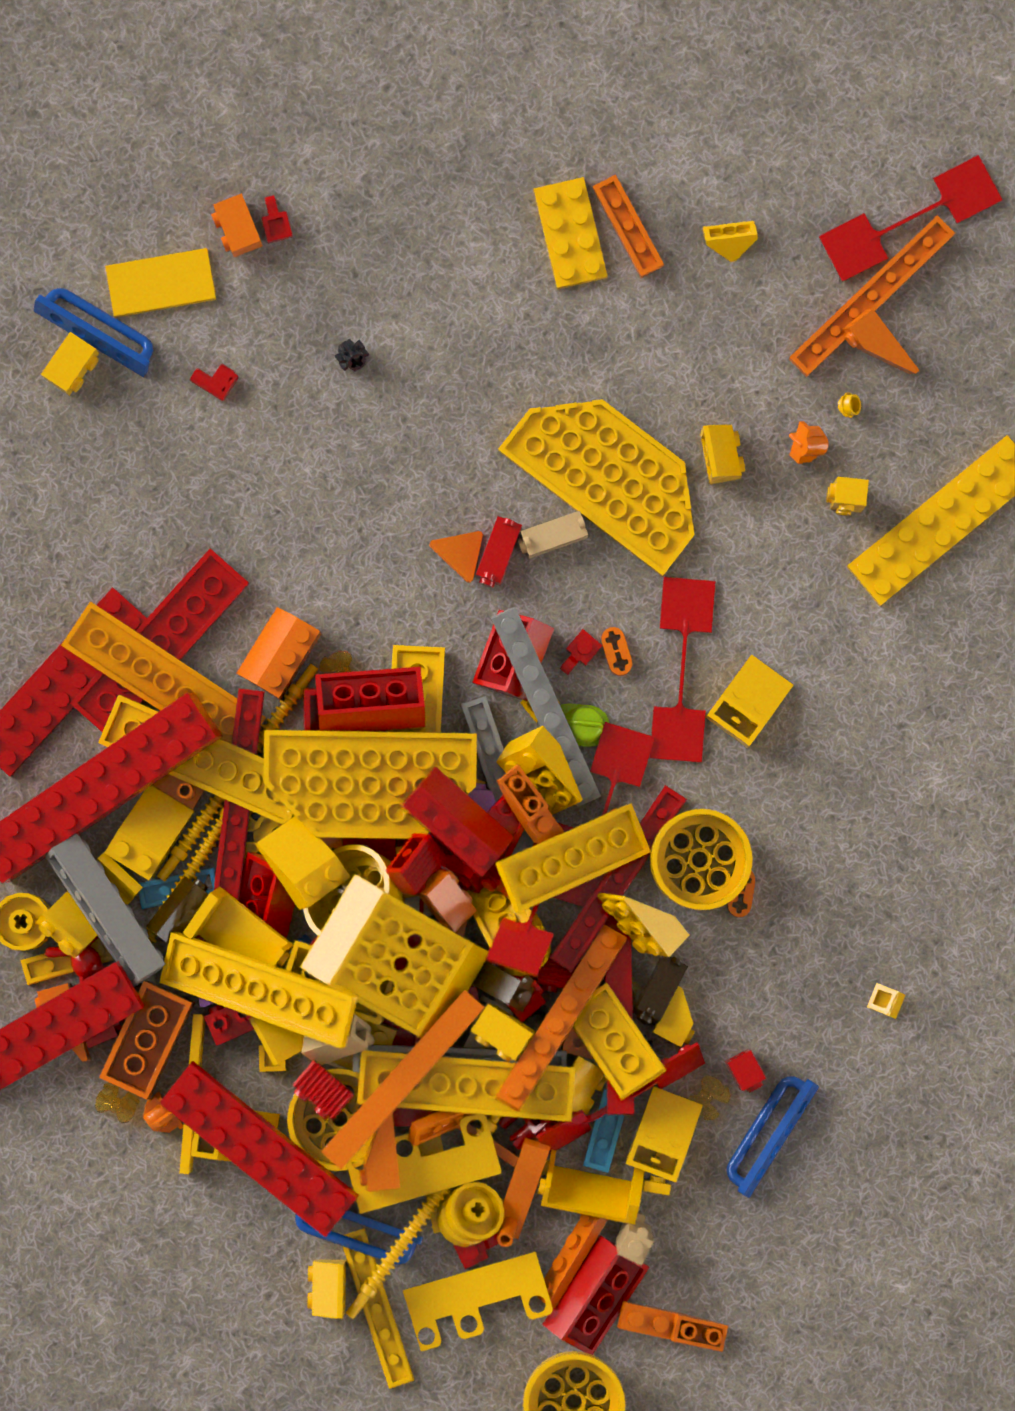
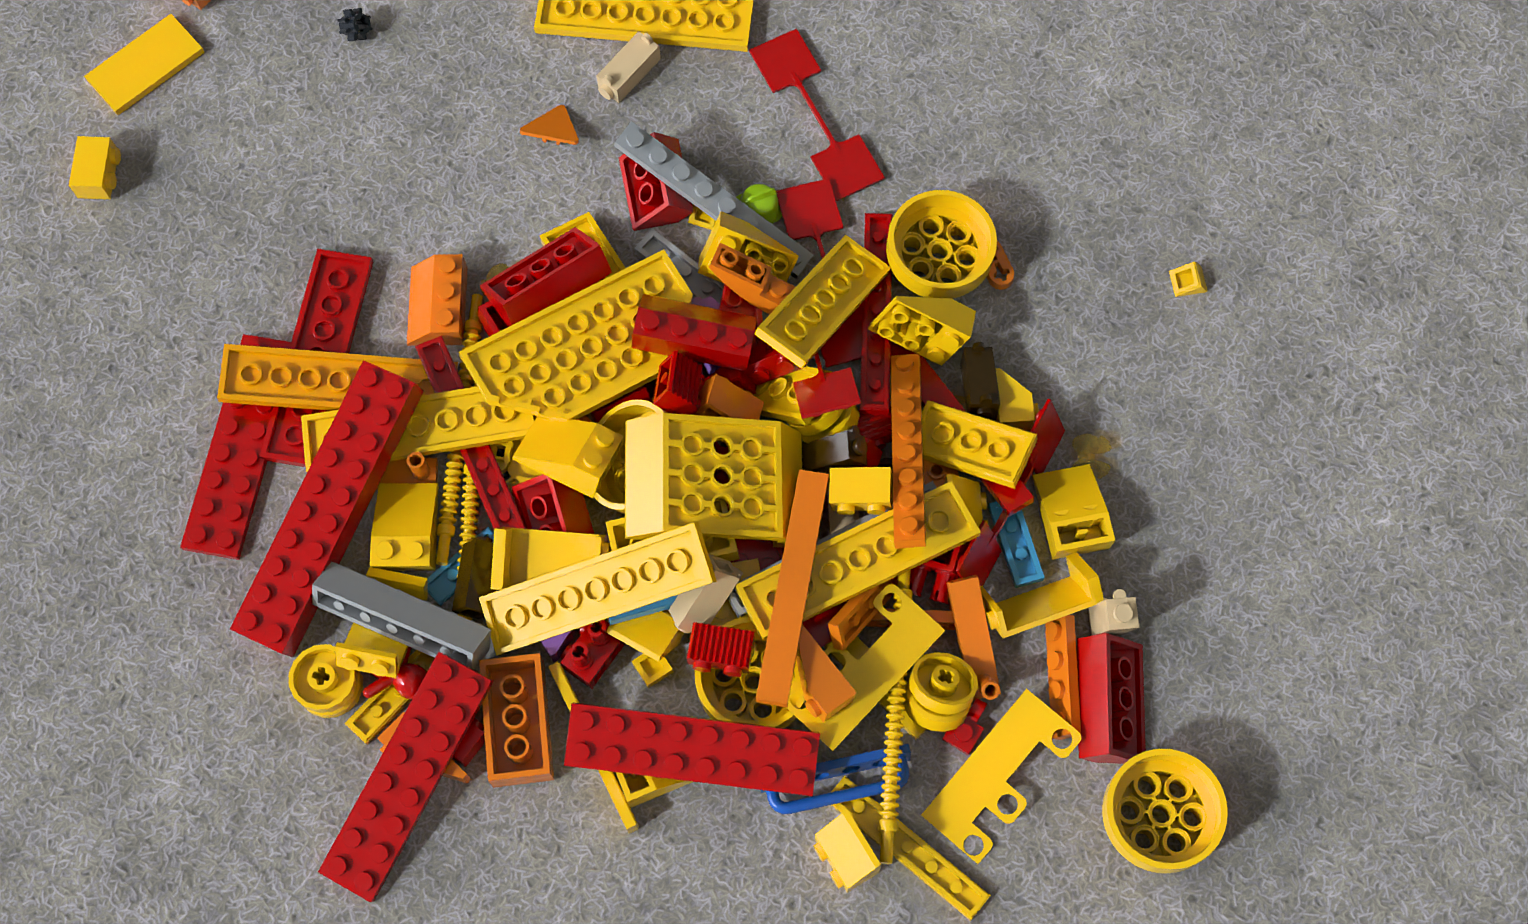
camera: 30 degrees left, 15 degrees down
(99, 340) = (101, 125): blue piece -> none
(108, 1101) = (512, 806): clear yellow piece -> none
(159, 1117) = (574, 787): orange piece -> none
(217, 385) = (246, 115): red piece -> none
(498, 552) = (587, 106): red brick -> none
(582, 650) = (714, 148): red plate -> none
(622, 649) = (743, 135): orange beam -> none
(656, 1185) = (1100, 561): yellow plate -> none
(672, 1326) = (1204, 683): orange slope -> none
(746, 1071) = (1108, 405): red brick -> none
(749, 701) = (892, 106): yellow slope -> none
(749, 1183) = (1181, 511): blue piece -> none

